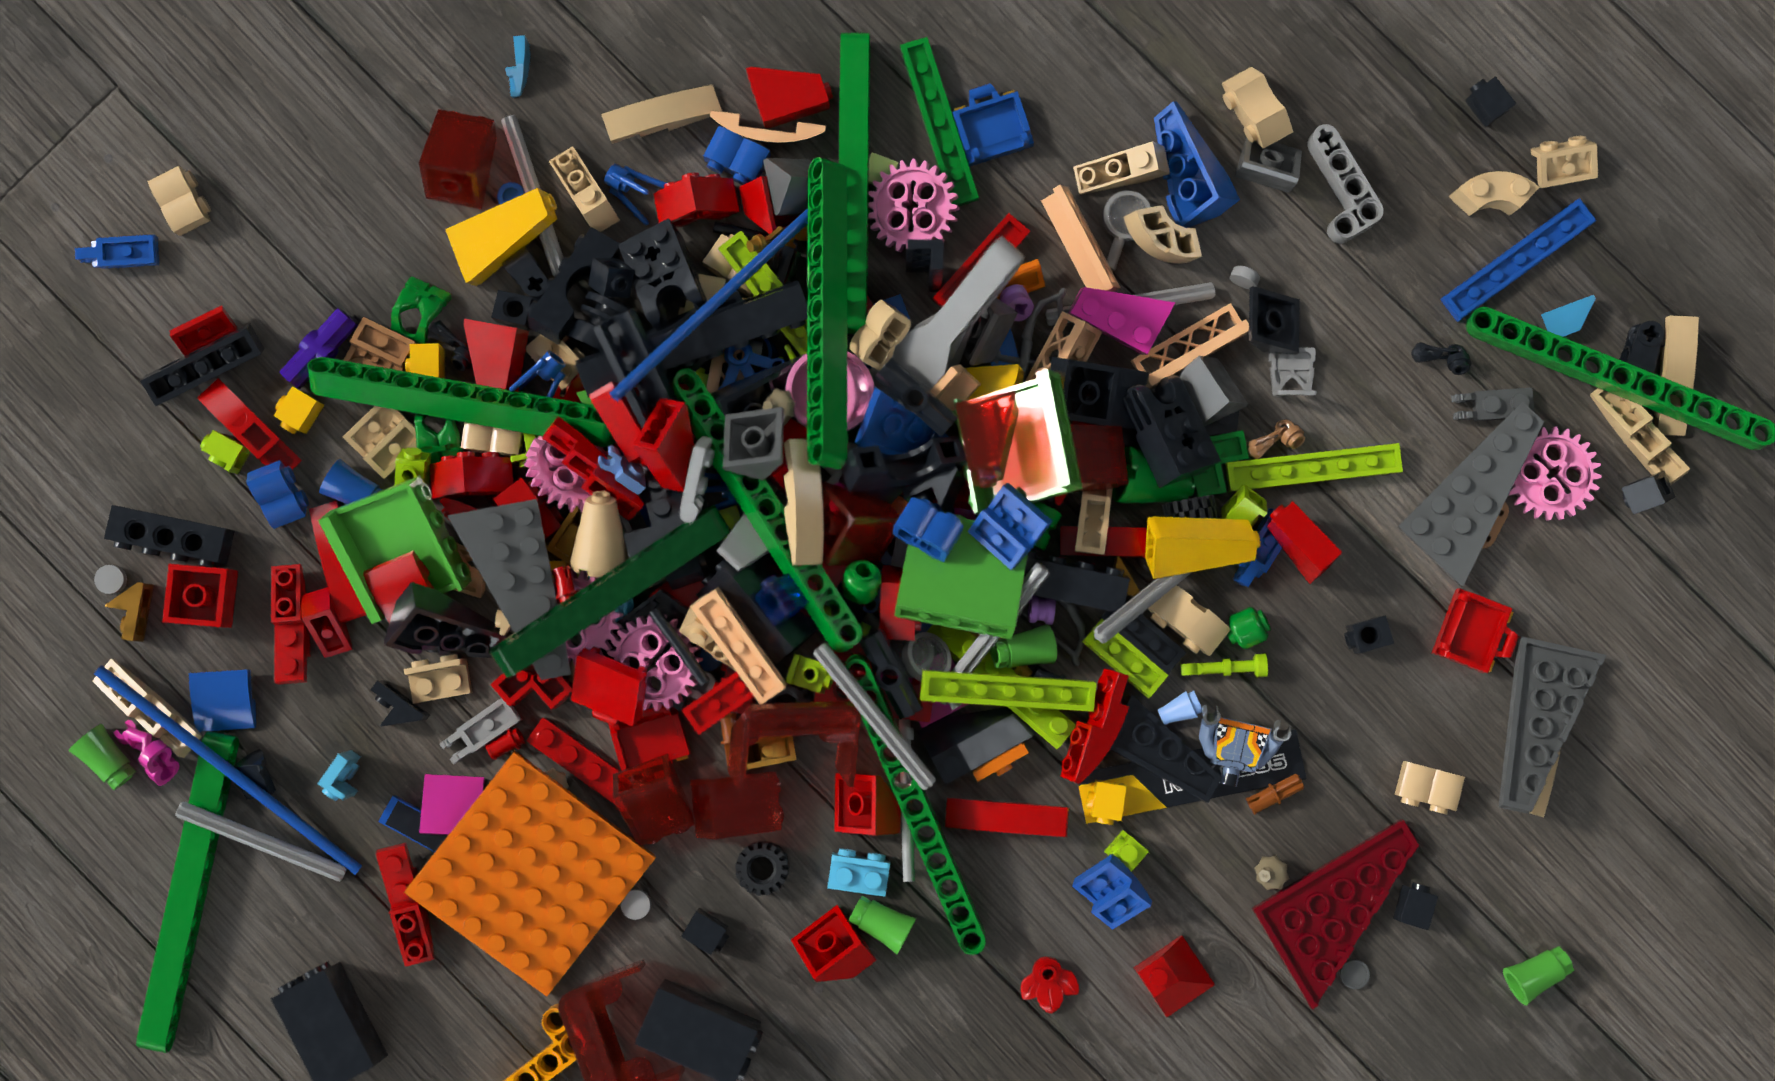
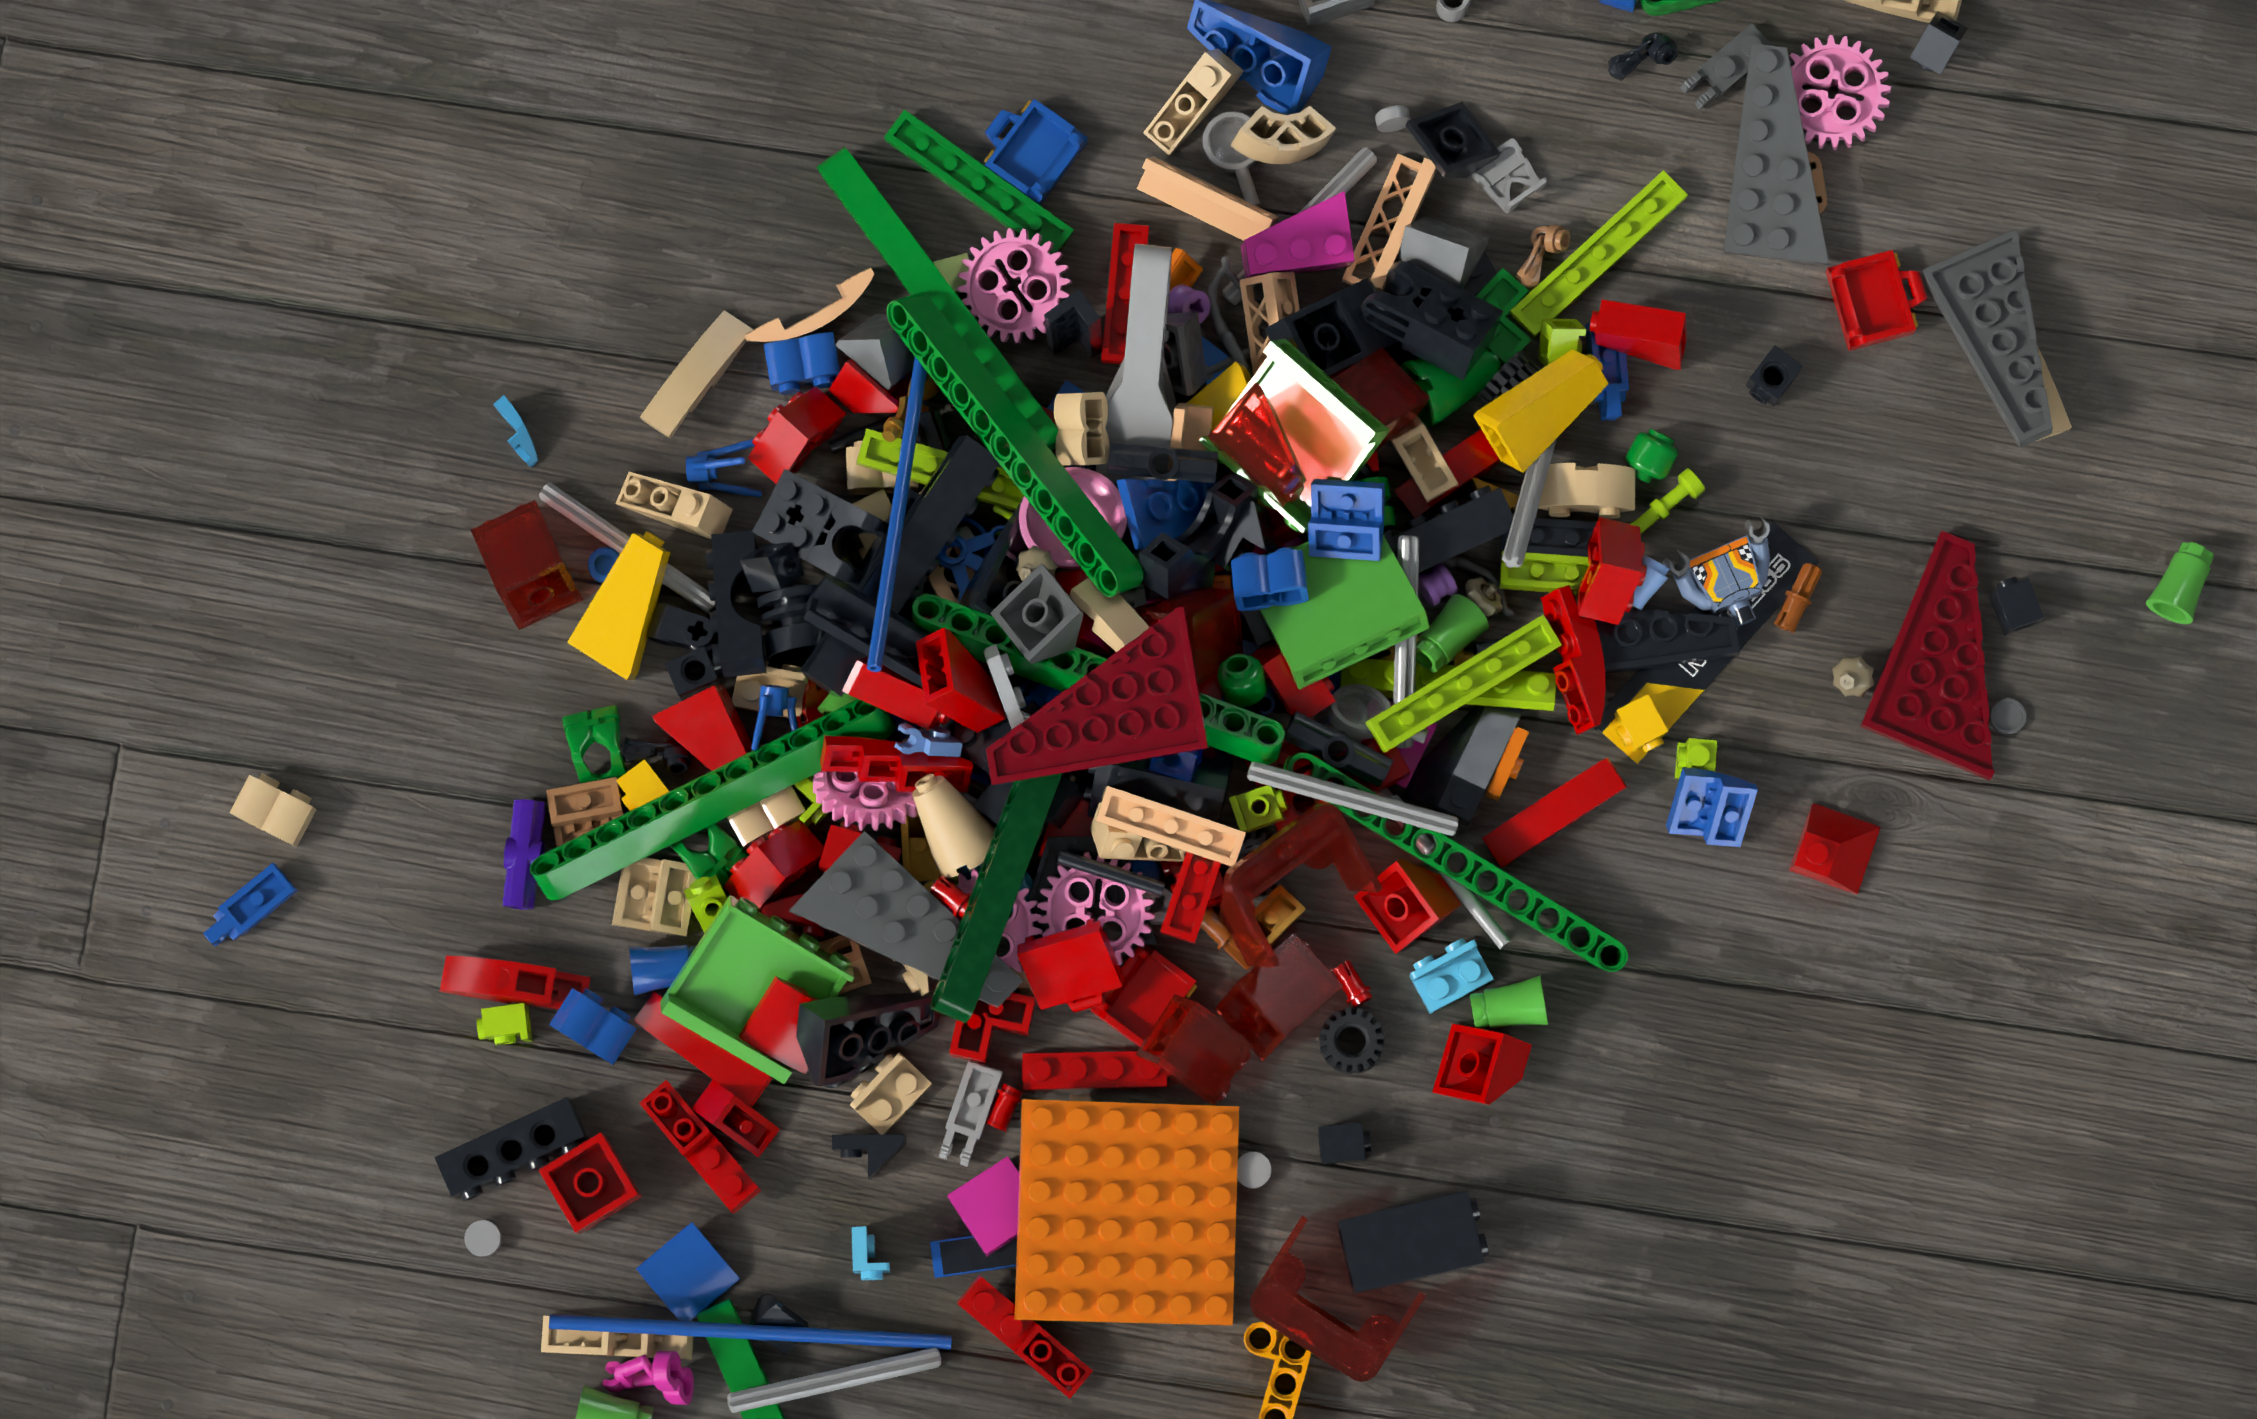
camera: 30 degrees left, 5 degrees down
(137, 603) = (527, 1240): pearl gold slope -> none
(202, 330) = (395, 921): red plate -> none
(202, 364) = (421, 953): black brick -> none
(297, 411) = (549, 931): yellow brick -> none
(760, 547) = (1123, 711): none -> dark red wing
(787, 94) = (807, 266): red slope -> none
(790, 831) = (1352, 984): none -> red pin
(1049, 988) = (1722, 950): red plate -> none
(1067, 640) = (1484, 595): none -> dark tan piece
(1164, 688) = (1612, 572): none -> red brick
(1429, 786) = (1942, 480): tan brick -> none

